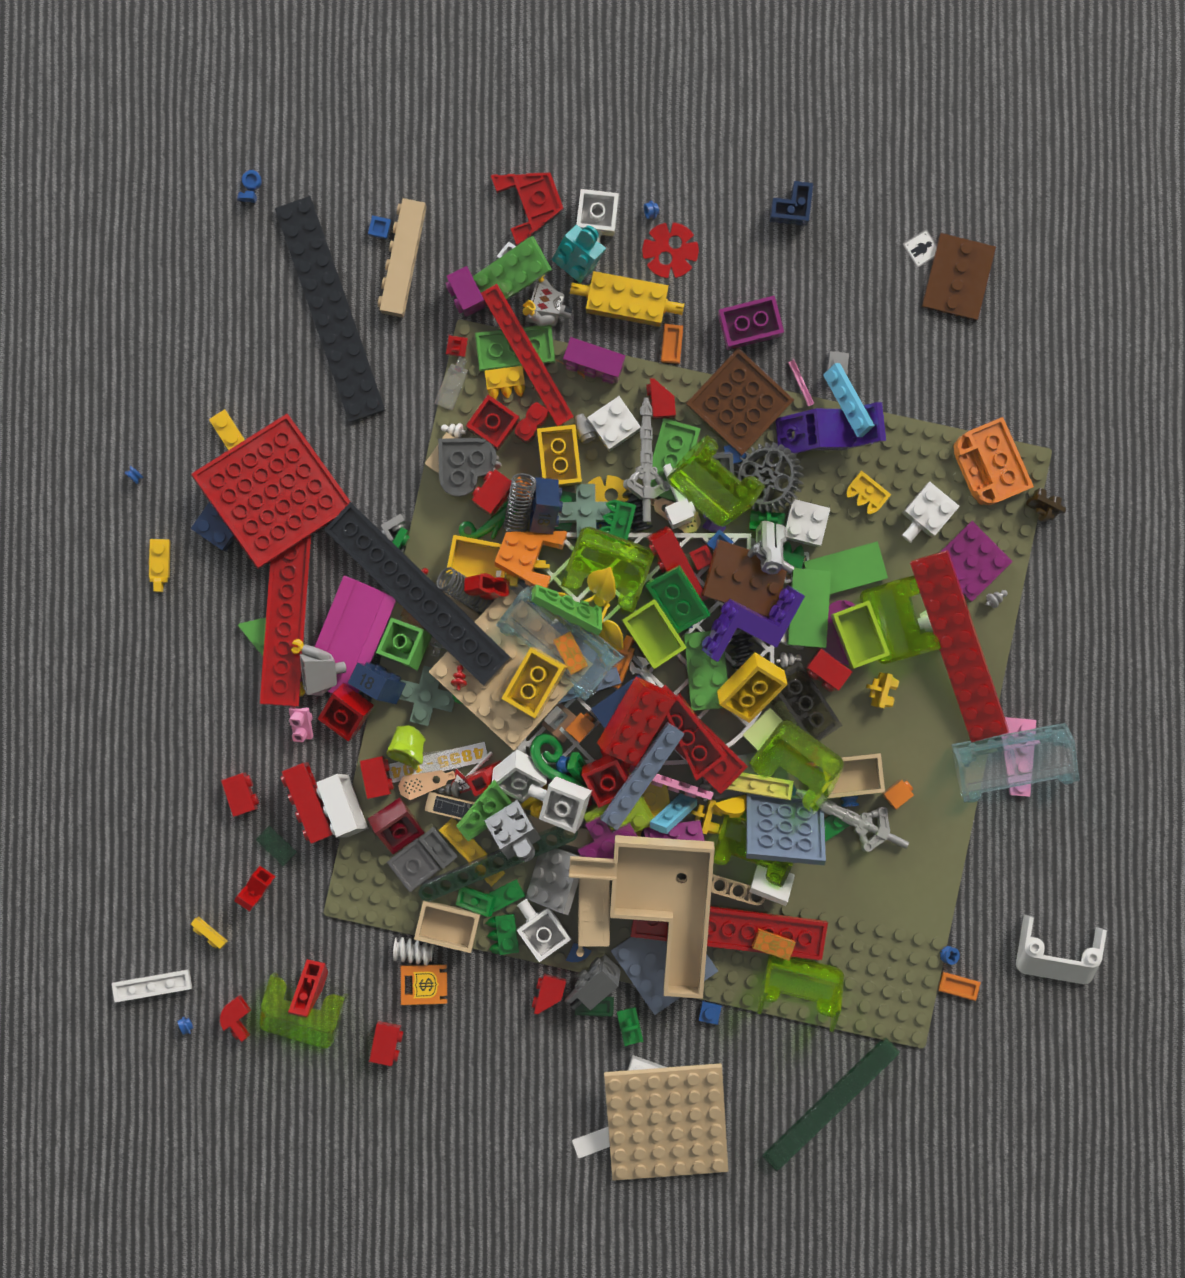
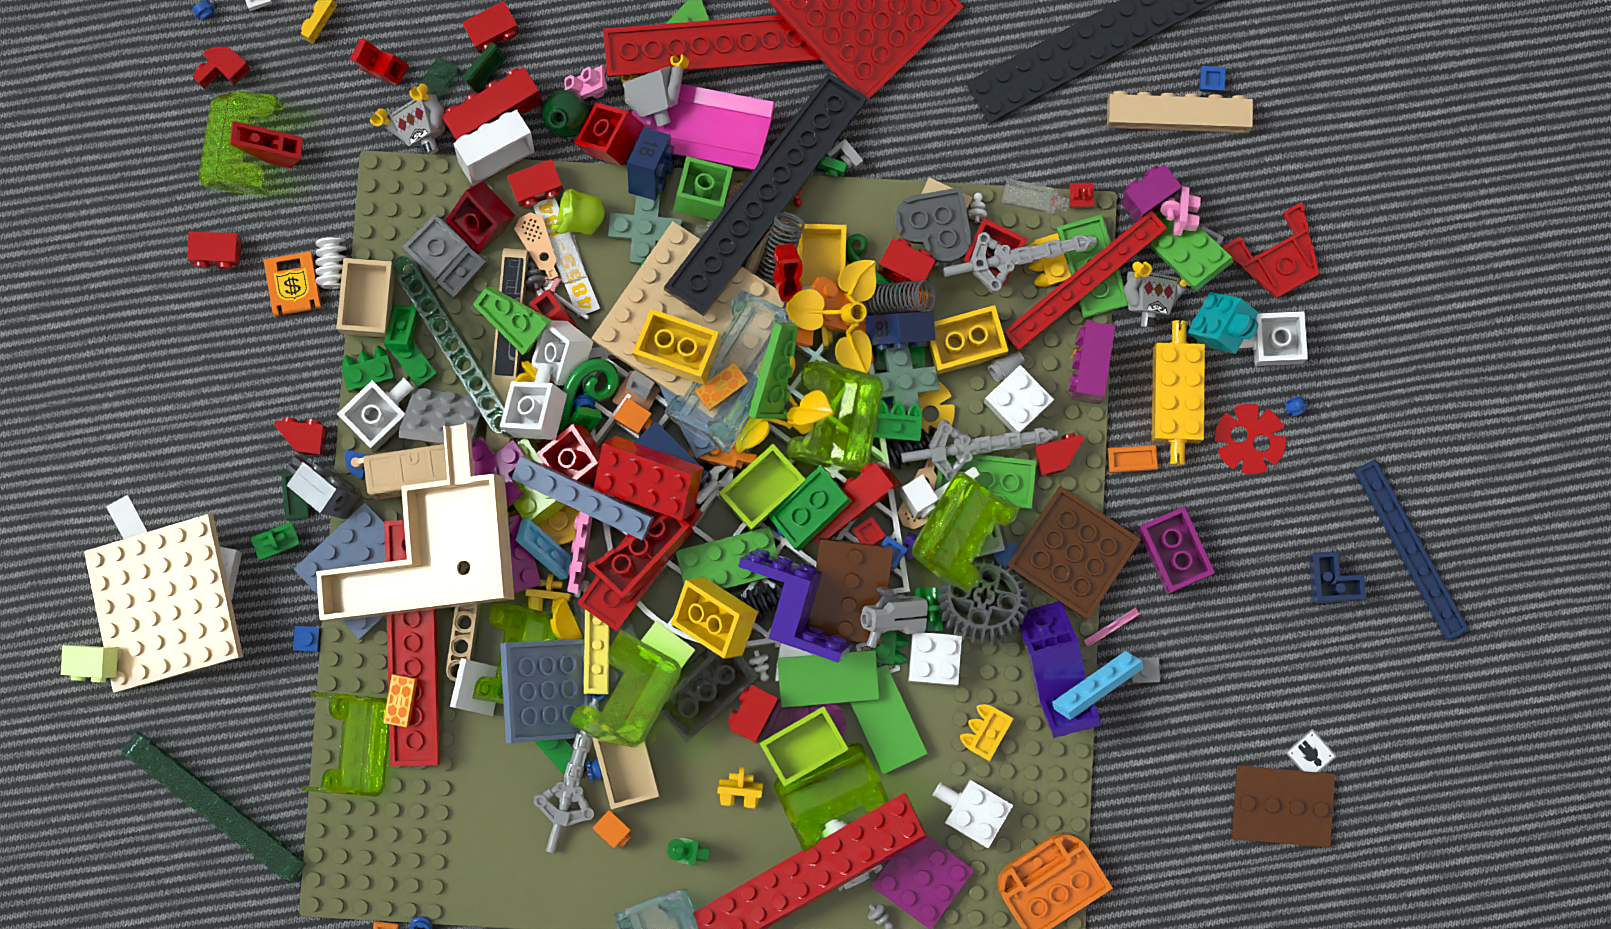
camera: 80 degrees right, 5 degrees down
(272, 805) = (484, 67): none -> dark green tile
(309, 866) = (417, 121): none -> light grey torso
(316, 741) = (571, 107): none -> dark green piece
(459, 676) = (671, 257): red hair -> none
(468, 849) = (464, 311): yellow tile -> none
(484, 272) = (1179, 210): none -> bright pink hips
(502, 413) = (1005, 258): none -> light grey bar
(514, 832) = (491, 355): brick -> none
(524, 575) = (807, 313): none -> yellow plant
(535, 418) = (1008, 302): red brick -> none
(702, 1187) = (89, 661): none -> yellowish green brick
(777, 142) = (1411, 550): none -> dark blue tile
(925, 738) = (687, 851): none -> green hips

